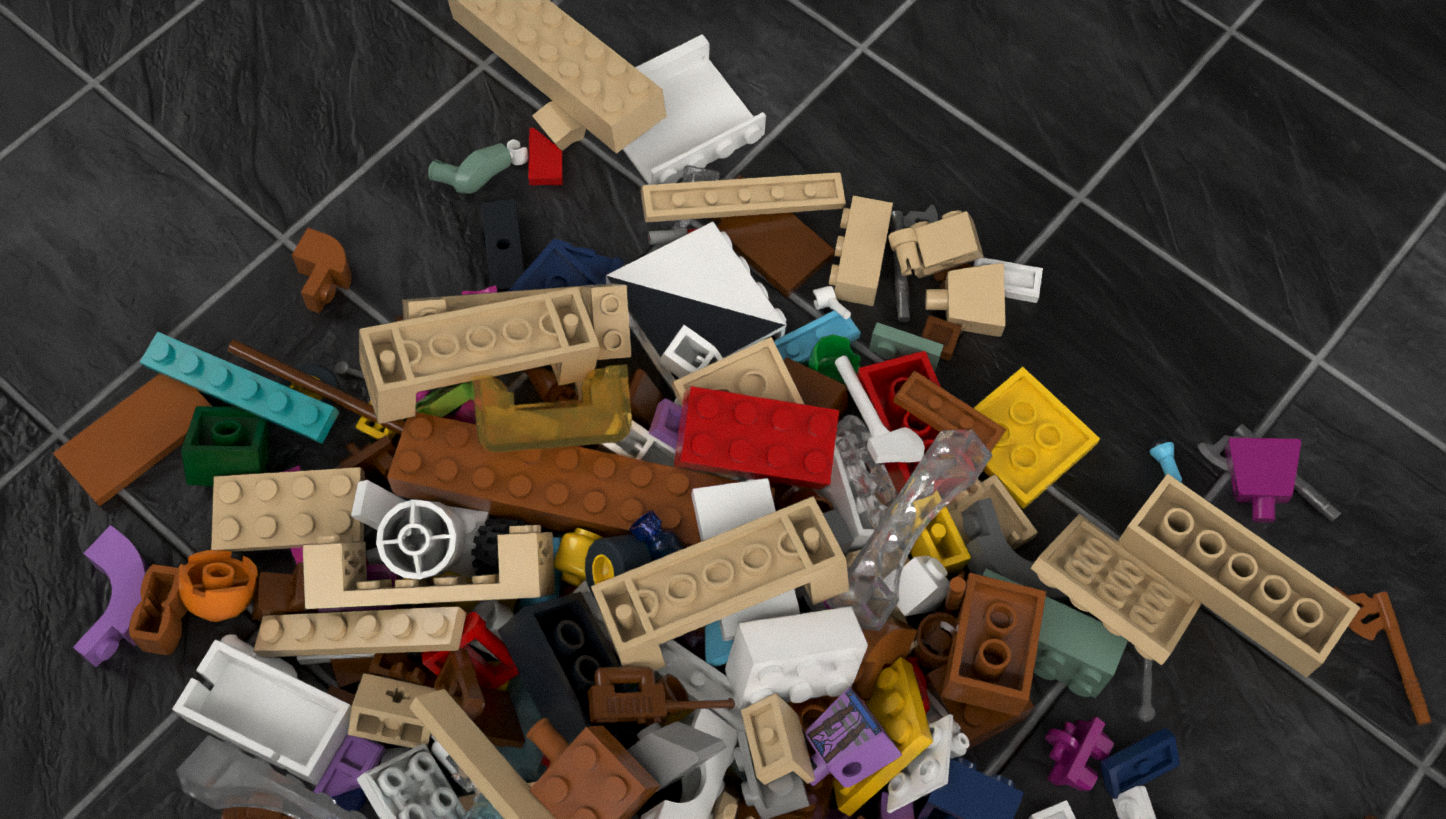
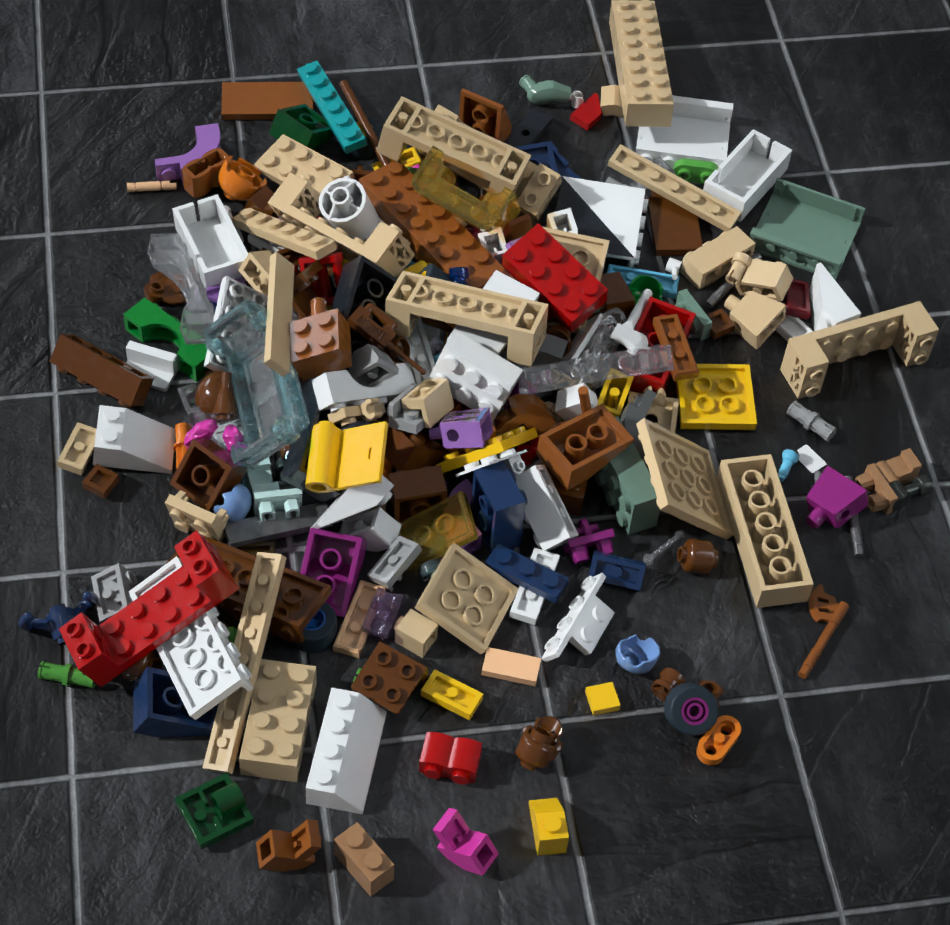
camera: 40 degrees right, 10 degrees down
(94, 684) = (151, 186): none -> light nougat wheel
(325, 264) = (425, 85): dark orange brick -> none
(450, 270) = (484, 115): none -> dark orange slope
(737, 152) = (694, 170): none -> bright green plate
(799, 115) = (748, 173): none -> white piece
(913, 140) = (806, 228): none -> sand green panel
(995, 243) = (798, 300): none -> dark red tile
(1010, 754) = (545, 509): none -> white brick
(1042, 230) = (829, 302): none -> white slope
(1087, 320) = (904, 328): none -> tan plate
(1141, 385) = (811, 421): none -> light grey pin
(1181, 434) = (810, 459): none -> white sticker
(1202, 666) = (697, 556): none -> reddish brown head
(1283, 408) = (887, 479): none -> medium nougat hips

